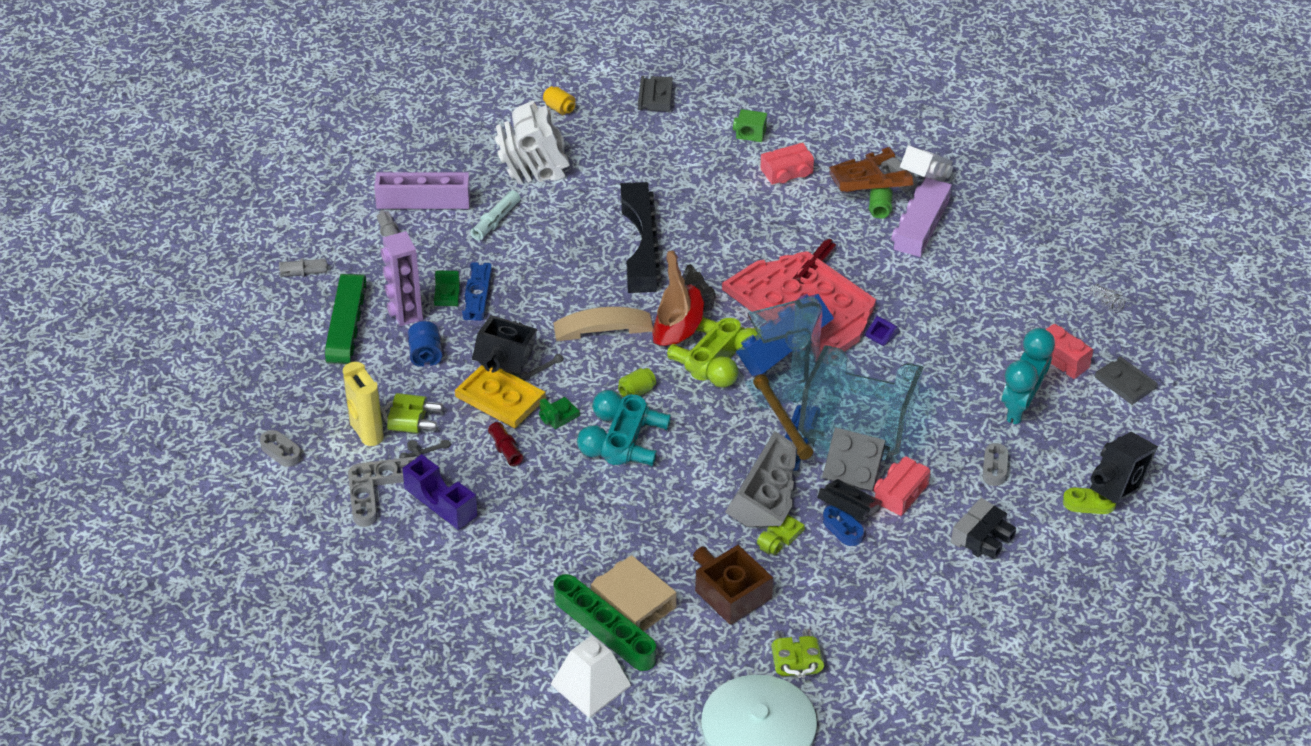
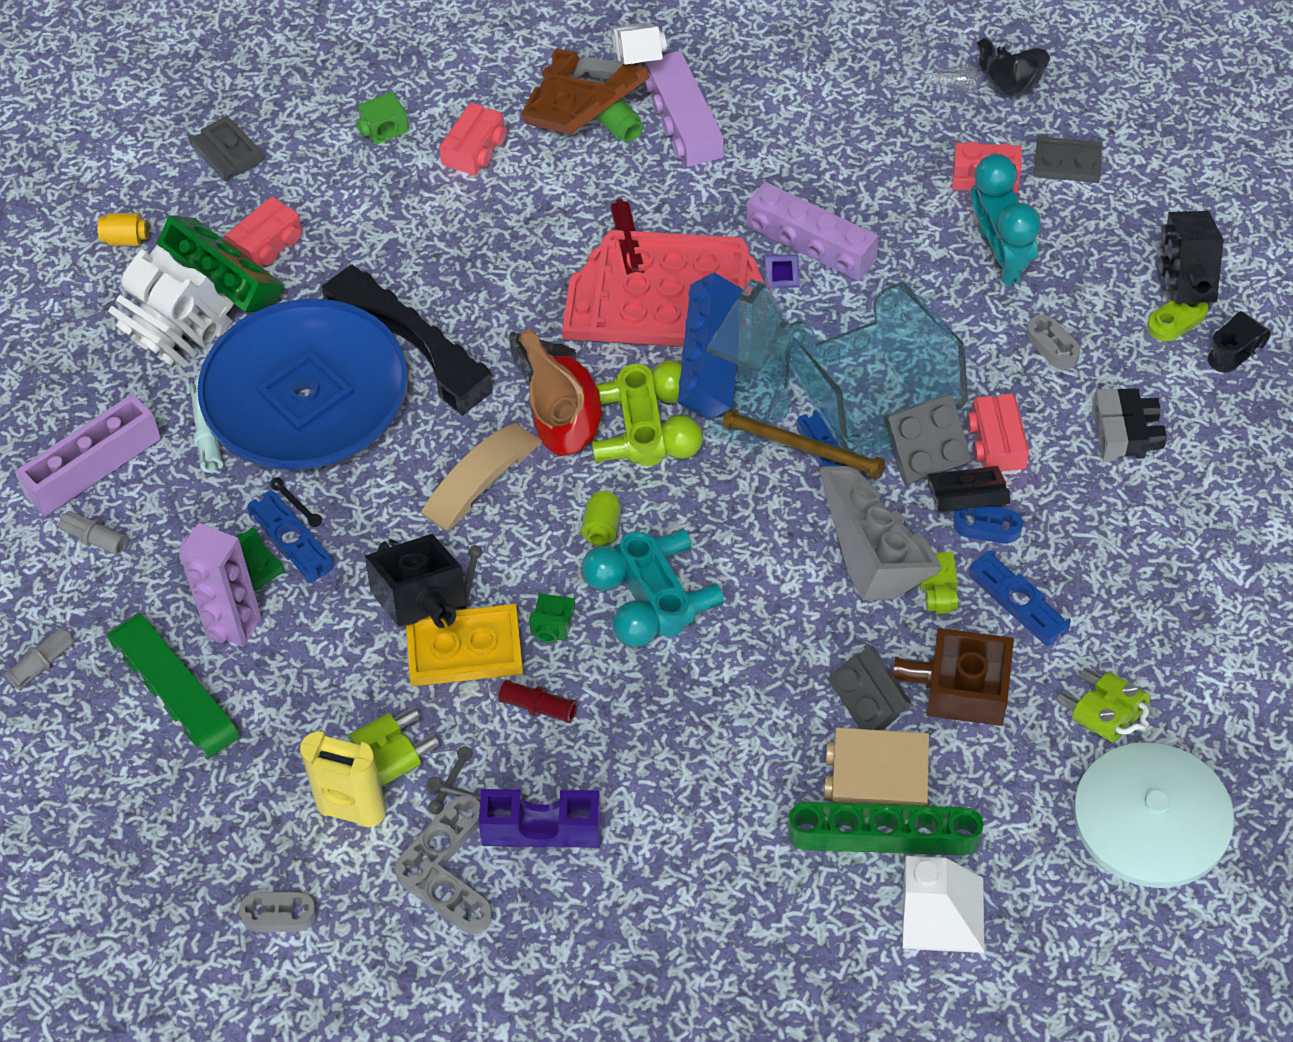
camera: 40 degrees left, 10 degrees up
(424, 343) = (306, 646): blue wheel -> none
(498, 292) = (277, 484): none -> black hinge
(584, 144) = (223, 264): none -> green brick
(587, 210) = (315, 344): none -> blue dish
(625, 144) = (266, 232): none -> coral brick
(675, 554) = (869, 690): none -> dark grey plate
(815, 558) = (1035, 615): none -> blue piece
(918, 320) = (812, 231): none -> lavender brick
(1109, 532) = (1237, 342): none -> black piece
(1143, 311) = (1011, 73): none -> black piece

